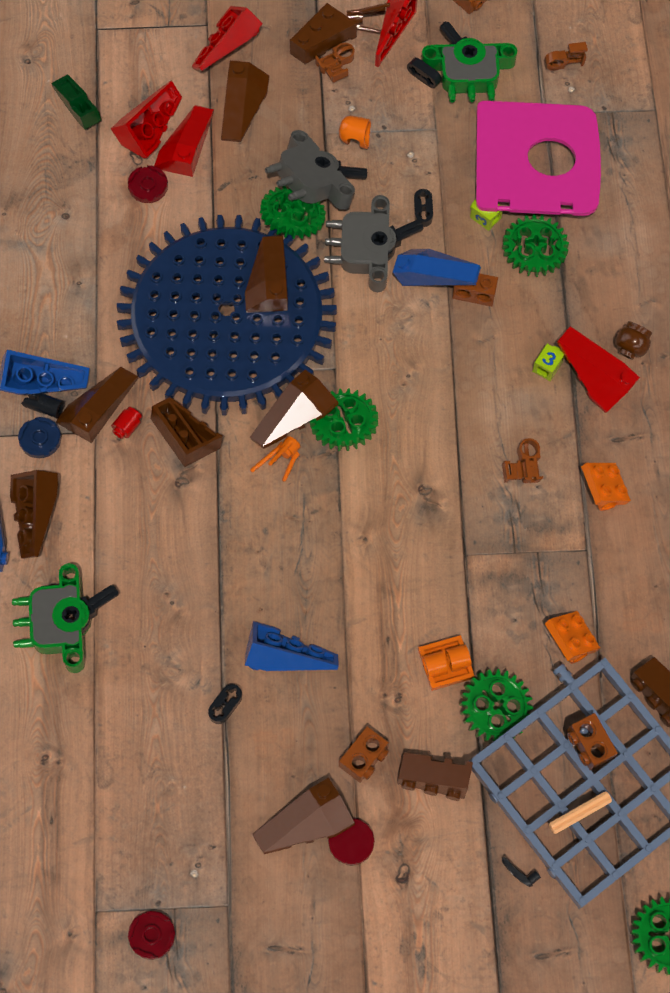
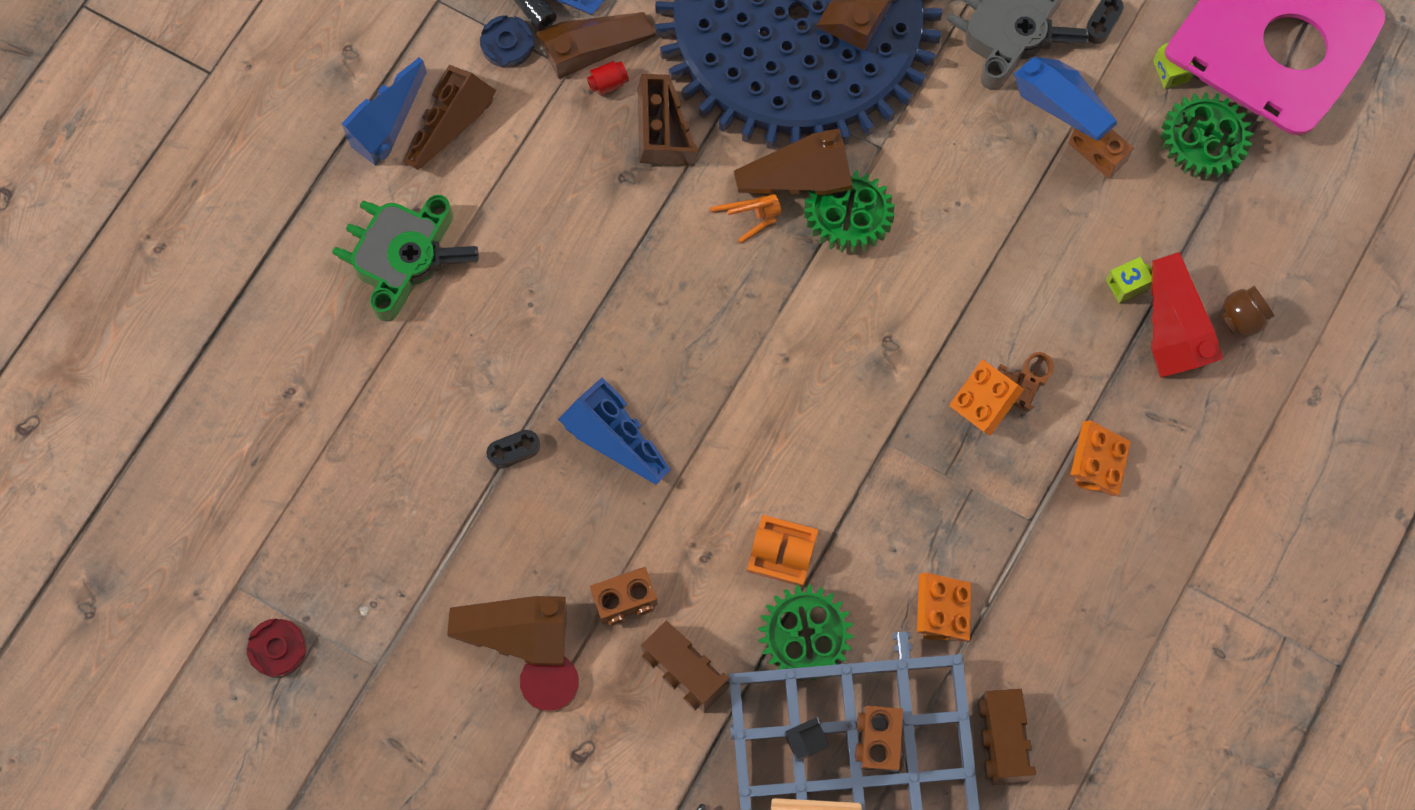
camera: 35 degrees right, 5 degrees up
(511, 487) = (986, 397): none -> orange plate
(545, 772) = (806, 739): none -> black panel

